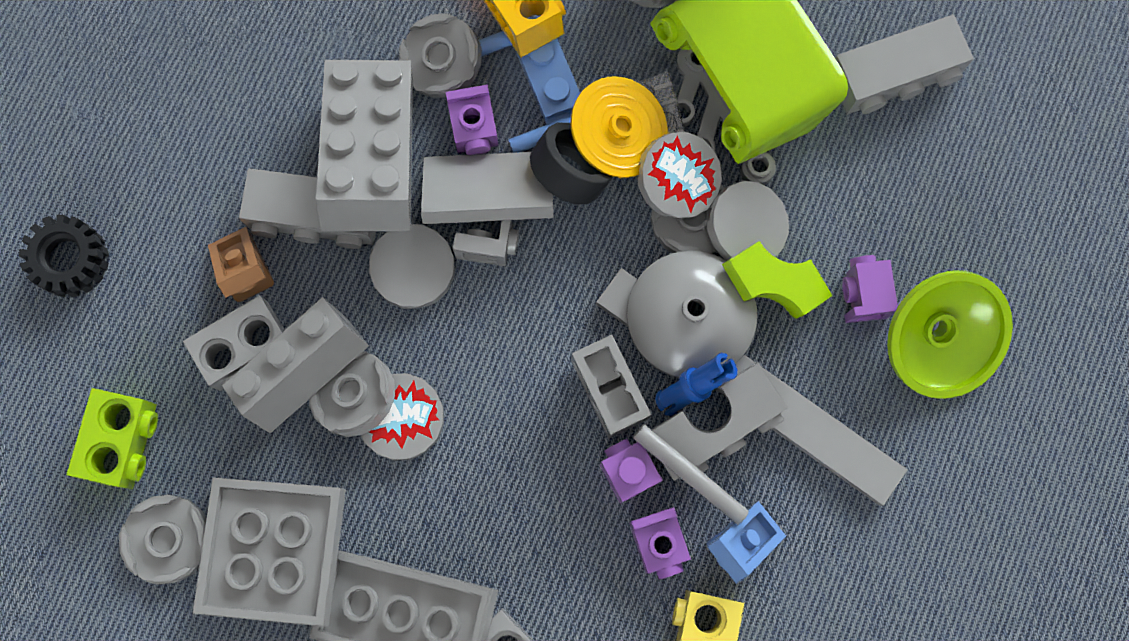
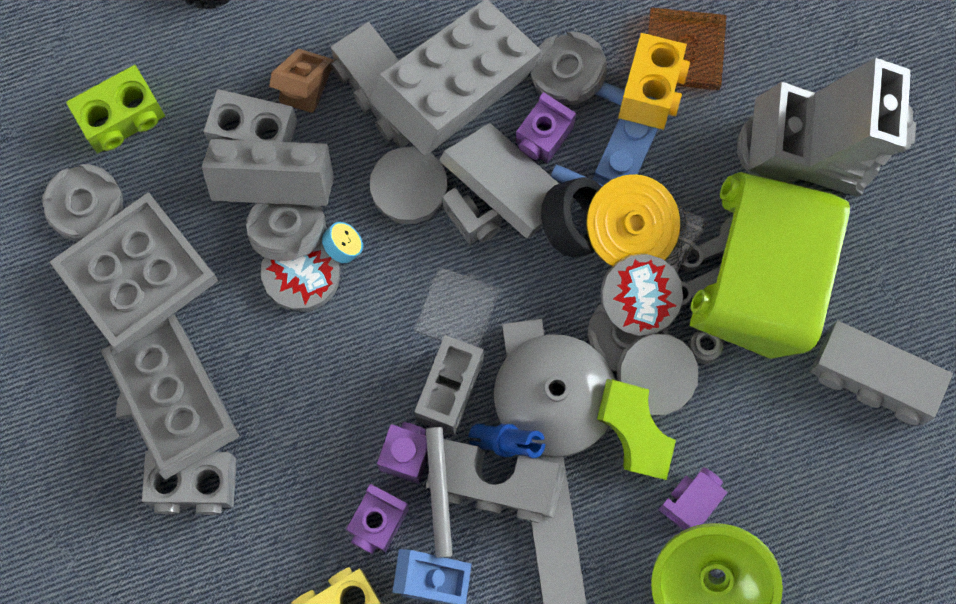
camera: 50 degrees right, 5 degrees down
(410, 362) = (342, 242): none -> tile
(549, 324) = (457, 308): none -> clear piece

